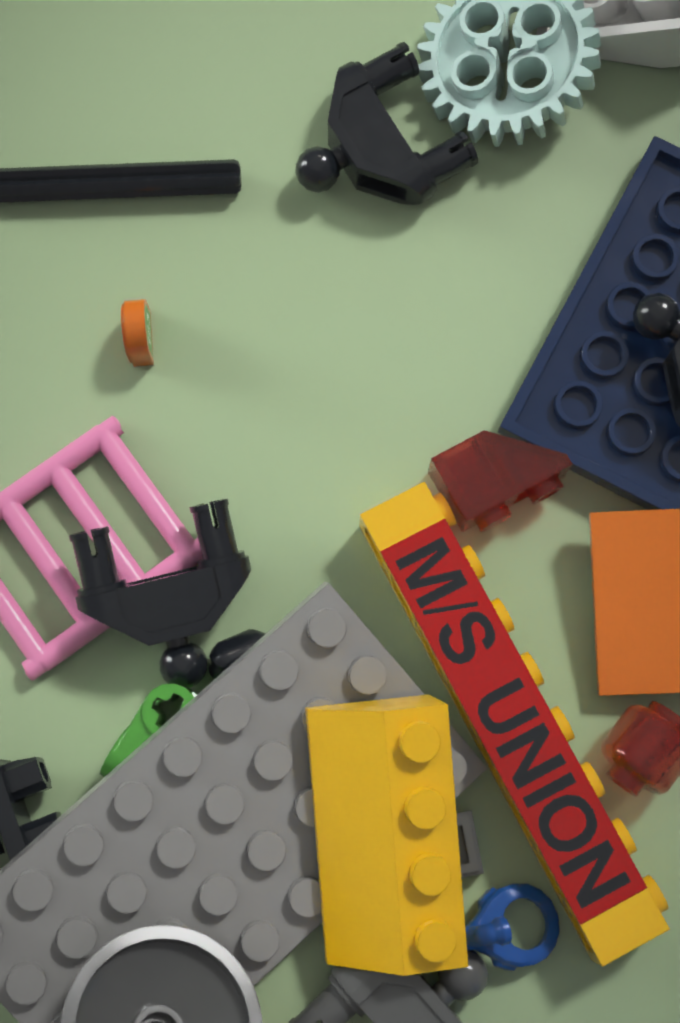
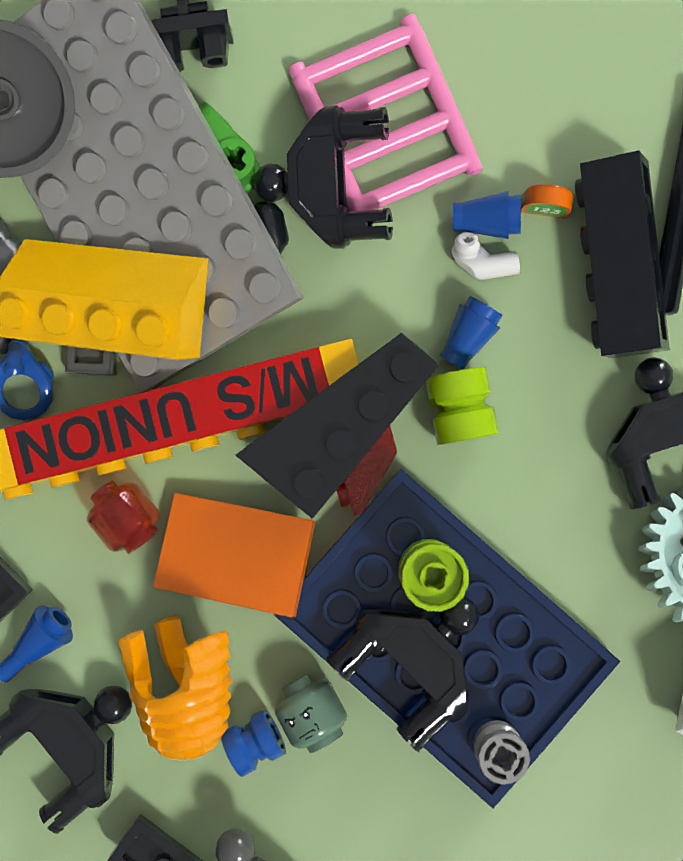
camera: 100 degrees right, 10 degrees up
(169, 393) = (489, 216): none -> blue cone
(189, 228) = (622, 256): none -> black brick
(228, 392) = (479, 263): none -> white arm
(315, 385) = (470, 331): none -> blue cone
(408, 372) = (461, 405): none -> lime wheel
(486, 510) = (332, 432): none -> black wing
(619, 353) = (433, 575): none -> lime wheel

